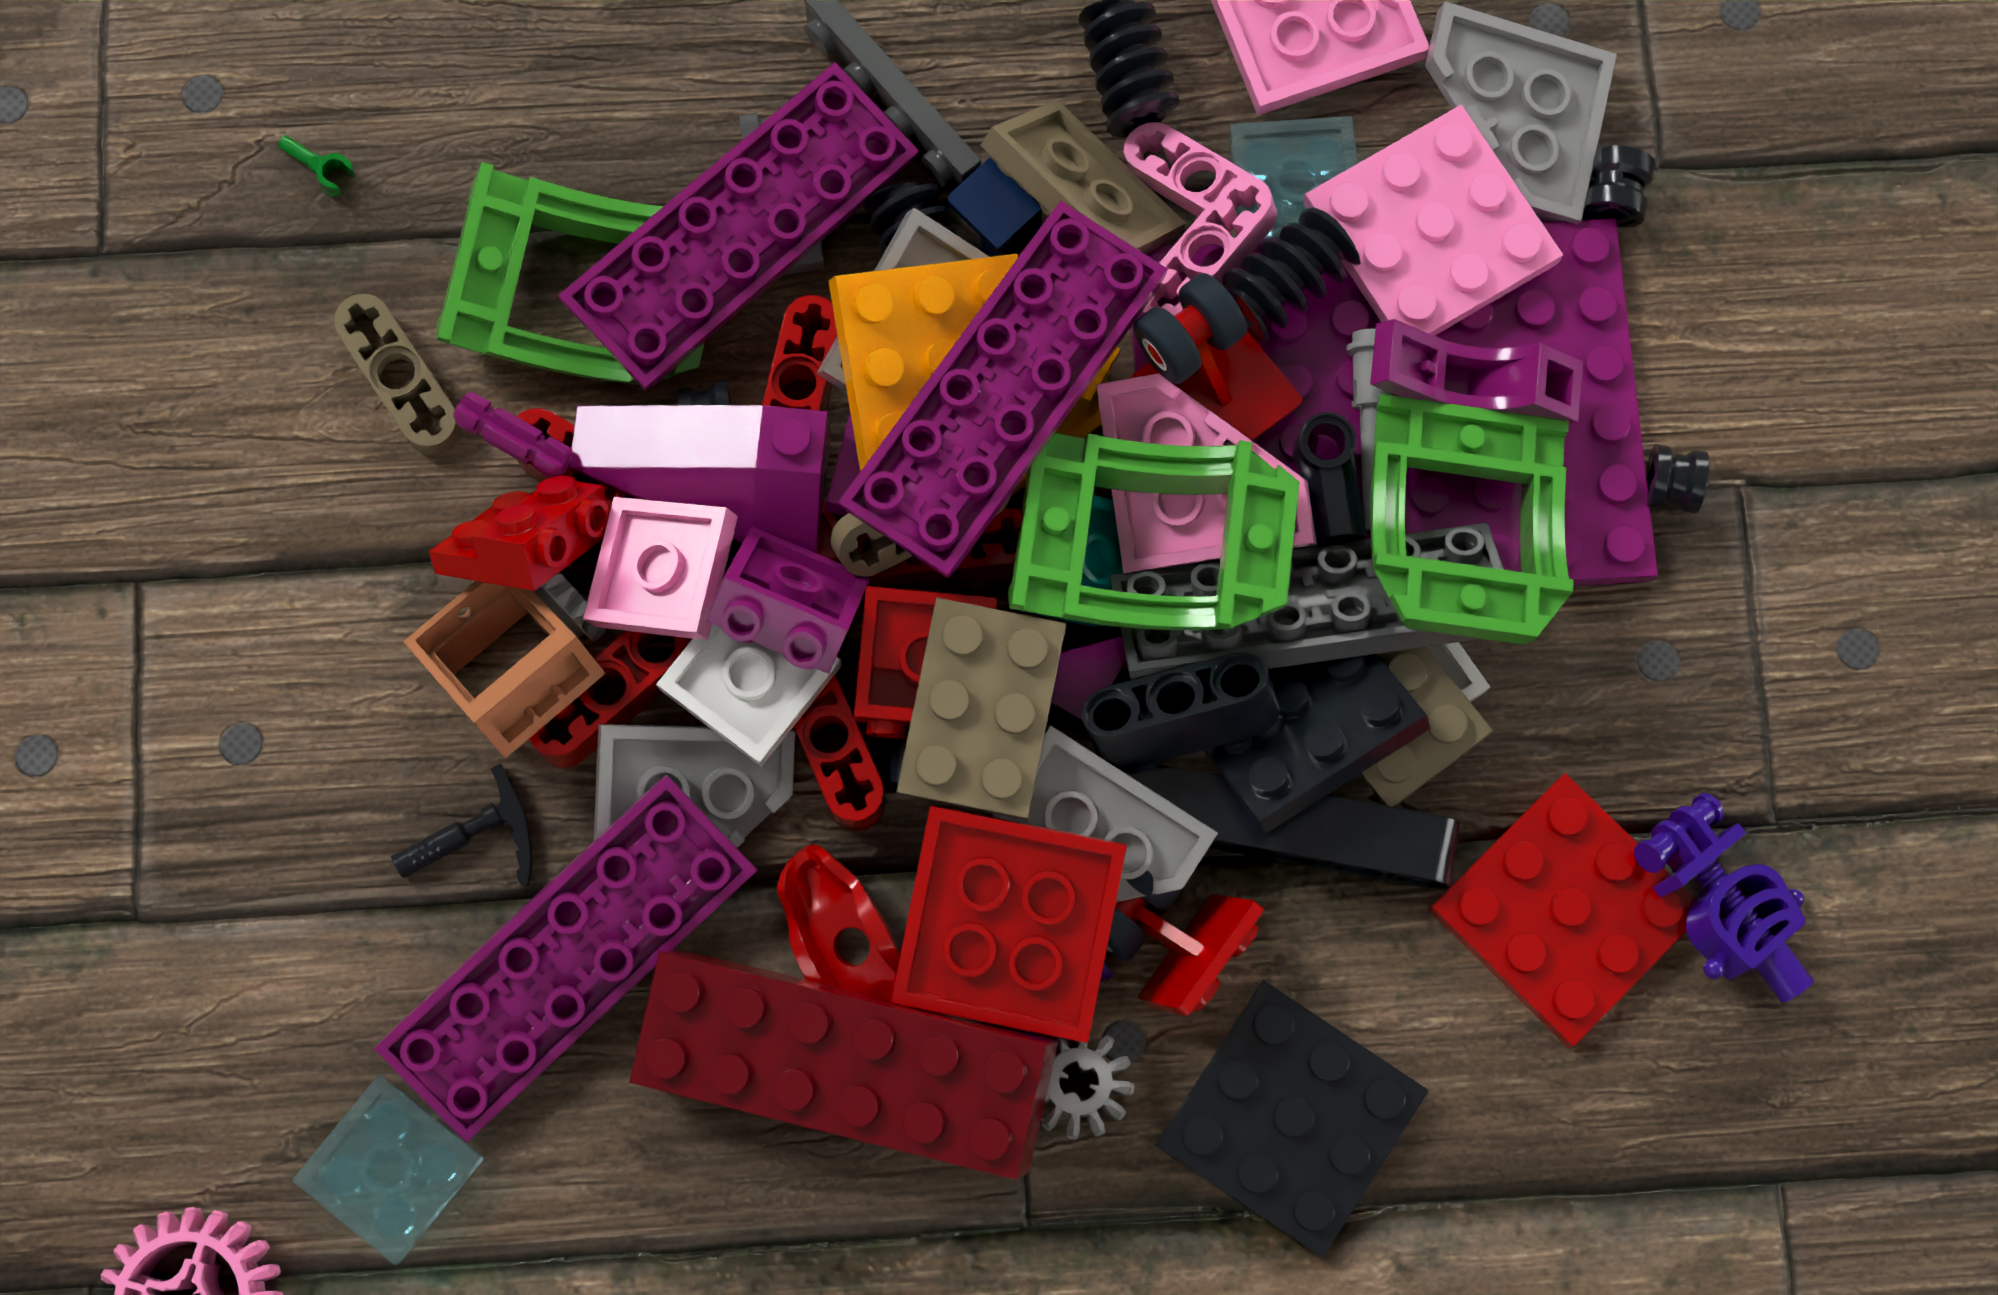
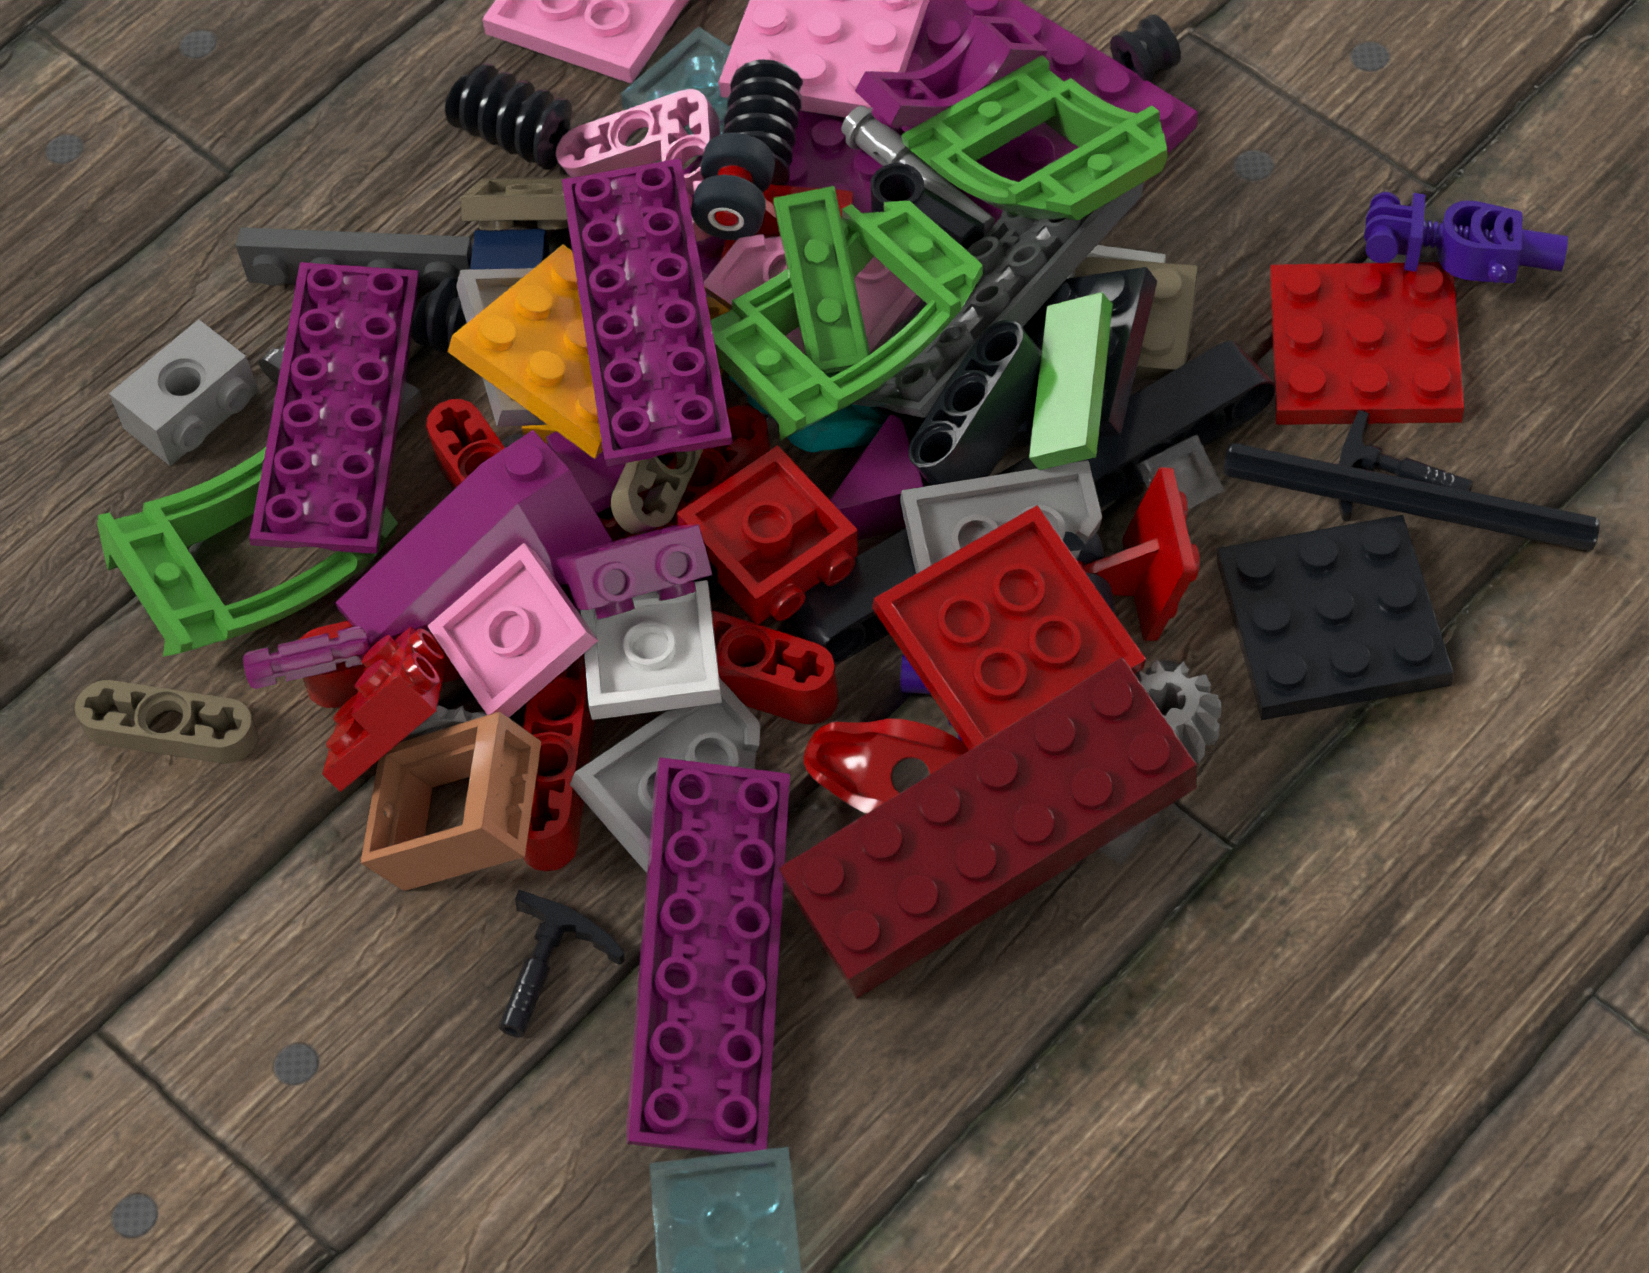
camera: 35 degrees left, 20 degrees down
(631, 75) = (184, 392): none -> light grey brick
(981, 708) = (841, 514): dark tan plate -> none
(1165, 488) = (822, 279): none -> bright green tile
(1264, 760) = (1071, 381): none -> tile
(1297, 893) = (1191, 469): none -> clear plate
(1448, 1085) = (1412, 496): none -> black axle
(1477, 1050) = (1370, 457): none -> black piece

